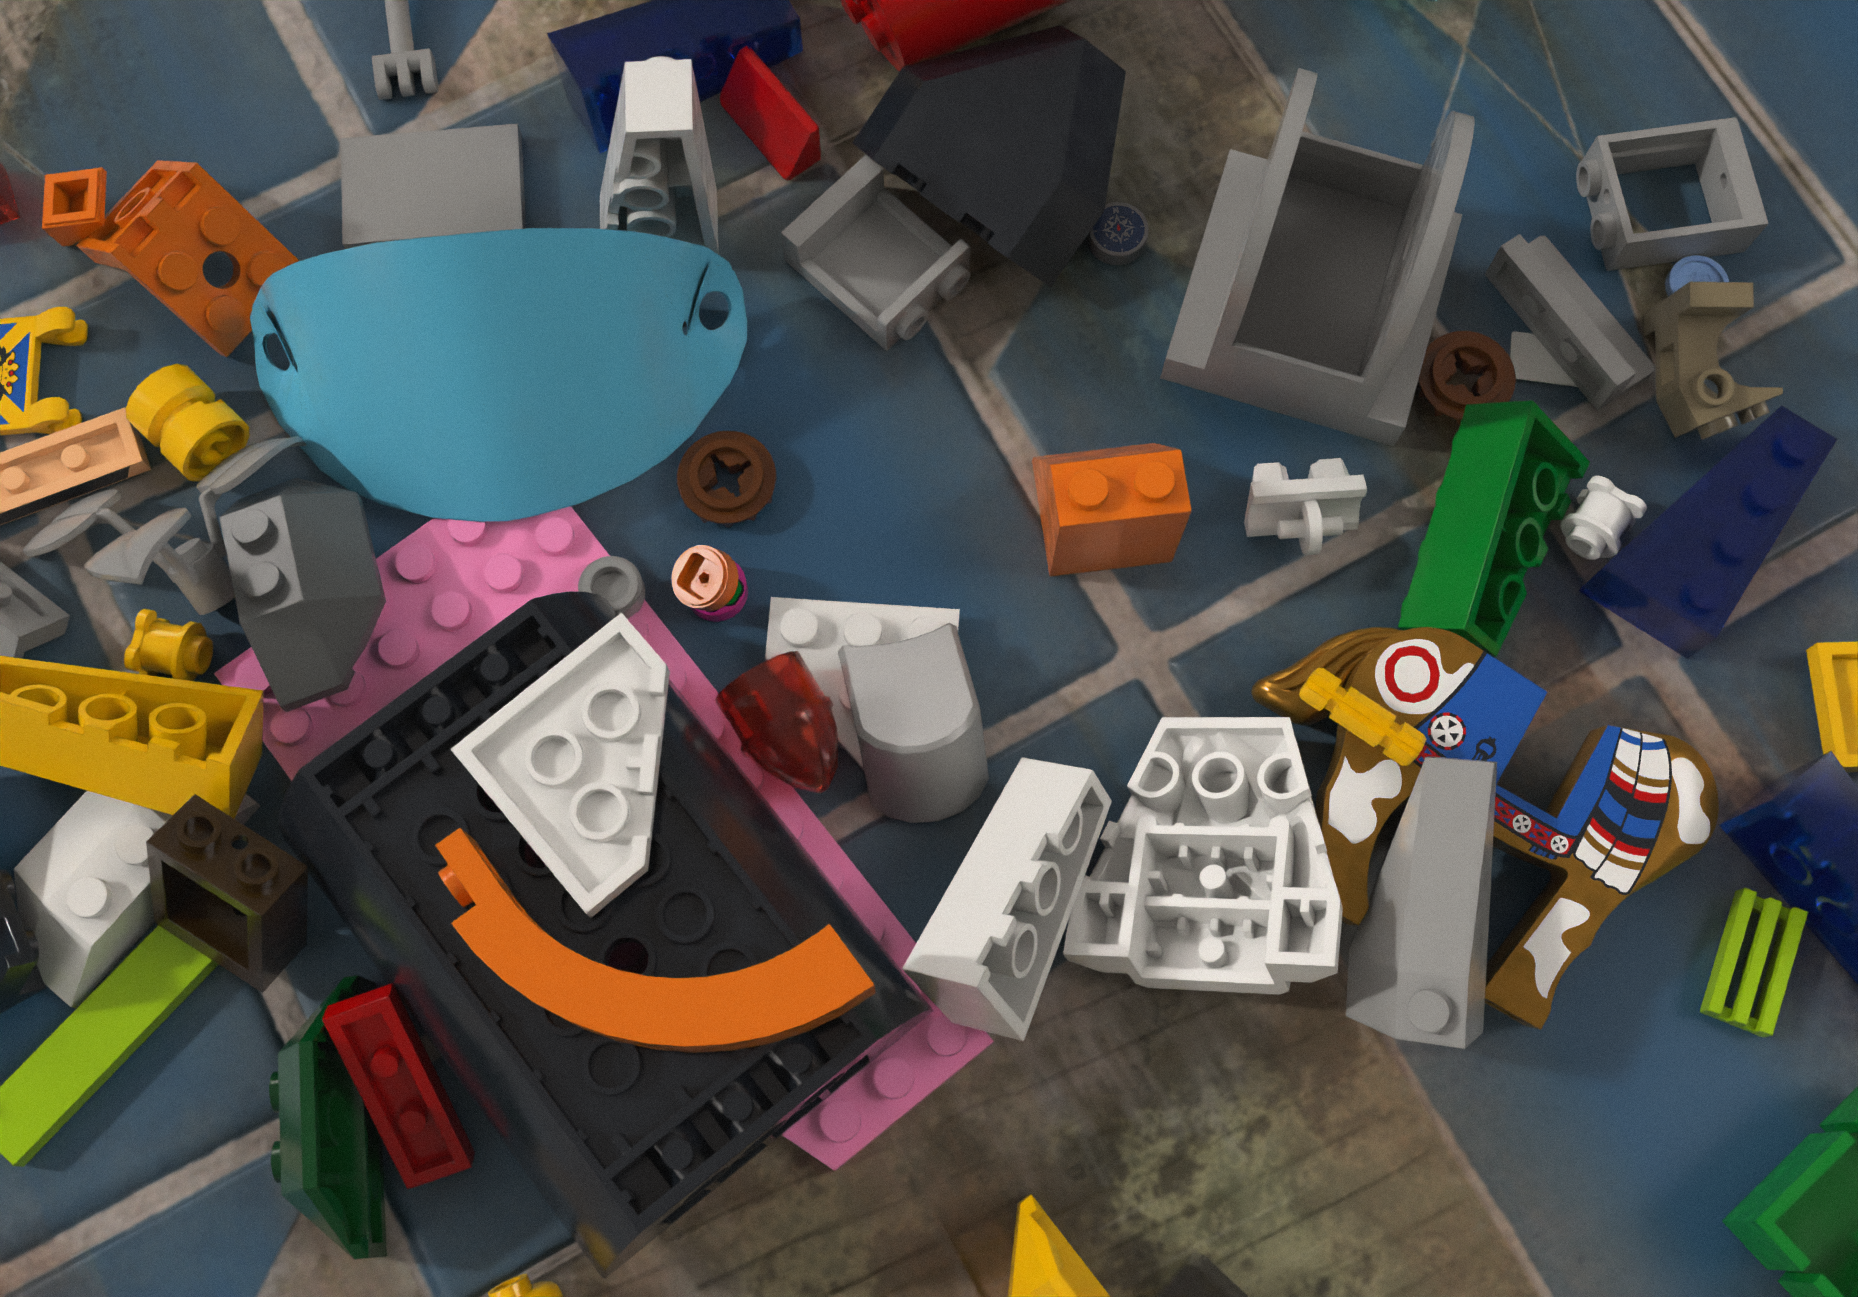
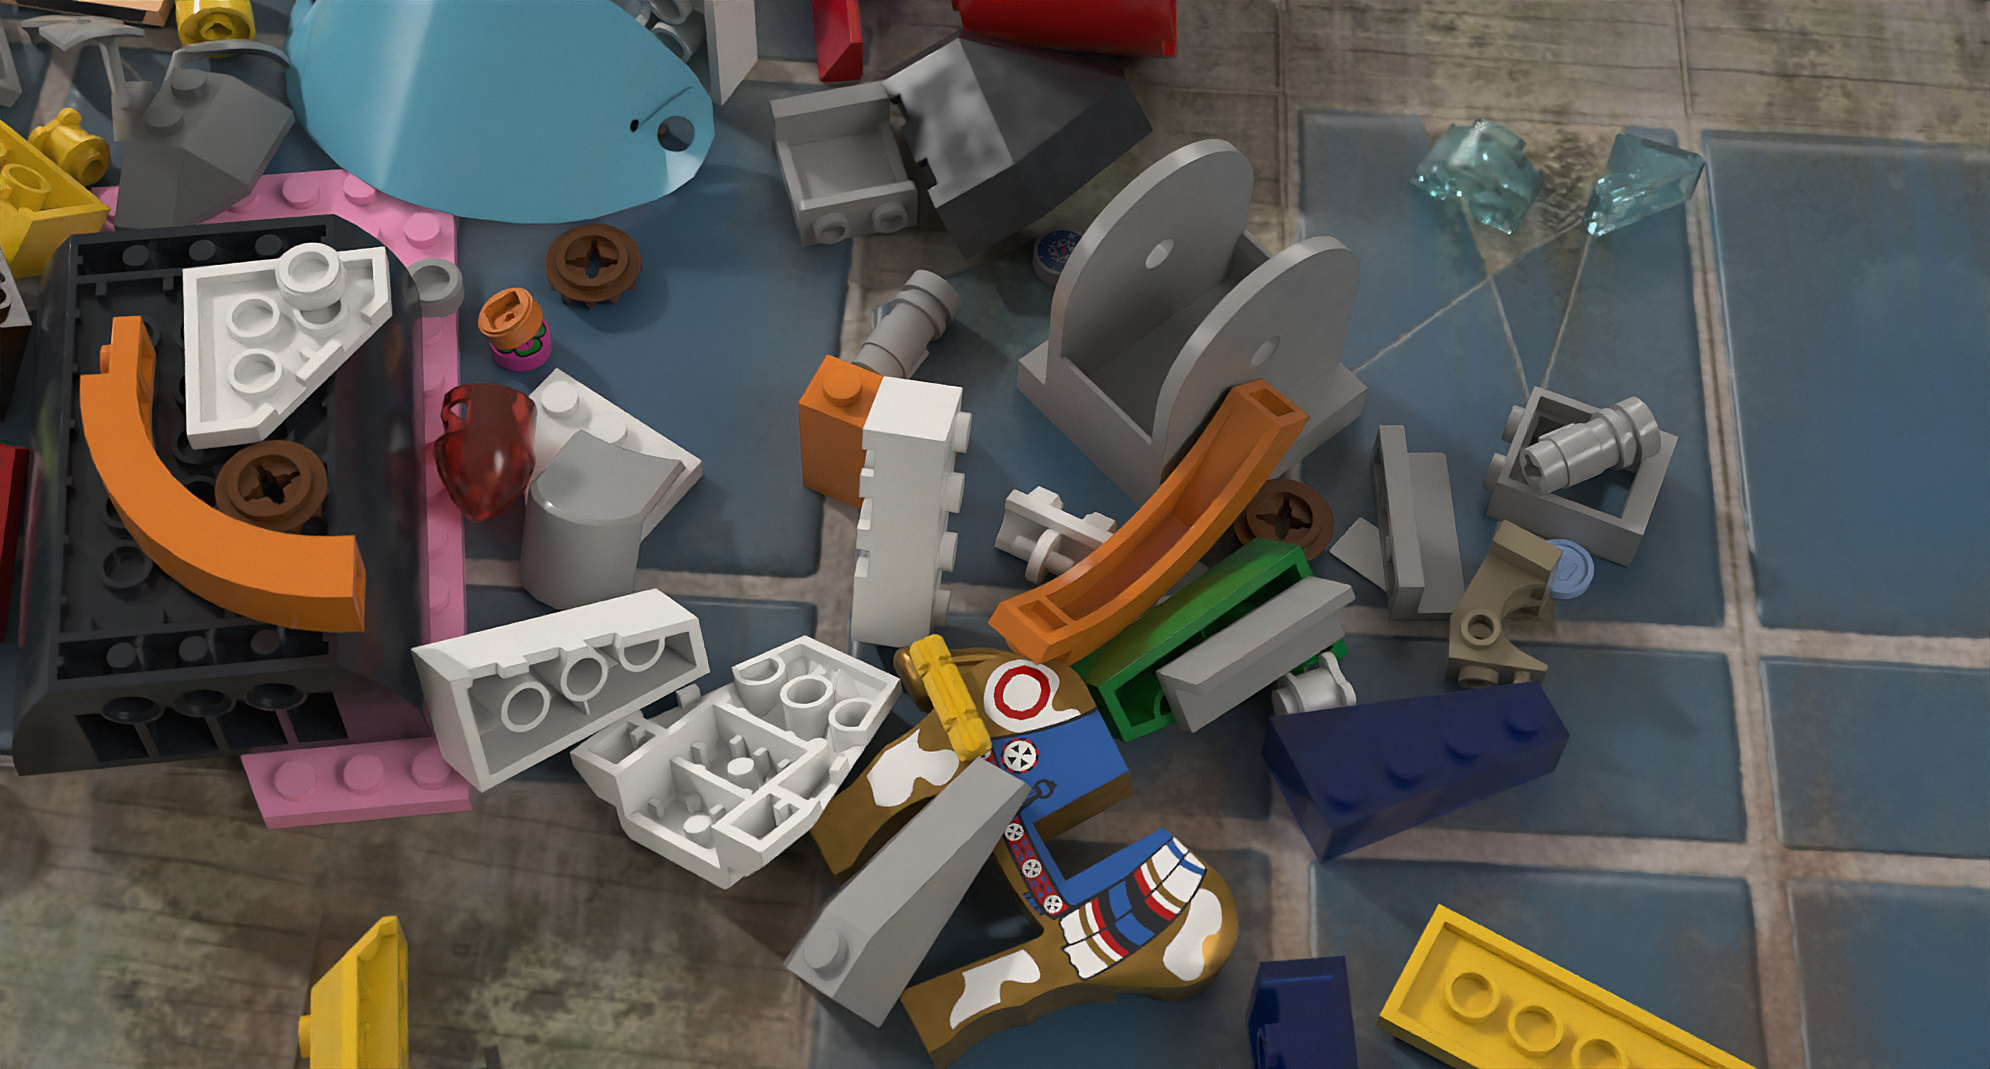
camera: 30 degrees right, 15 degrees down
(582, 686) = (311, 276): none -> white tile
(687, 881) = (289, 468): none -> reddish brown gear
(1044, 393) = (916, 317): none -> light grey axle
(1218, 565) = (906, 511): none -> white wedge
(1408, 465) = (1162, 538): none -> orange arch
(1554, 511) = (1253, 651): none -> light grey panel
(1686, 179) = (1581, 451): none -> light grey axle

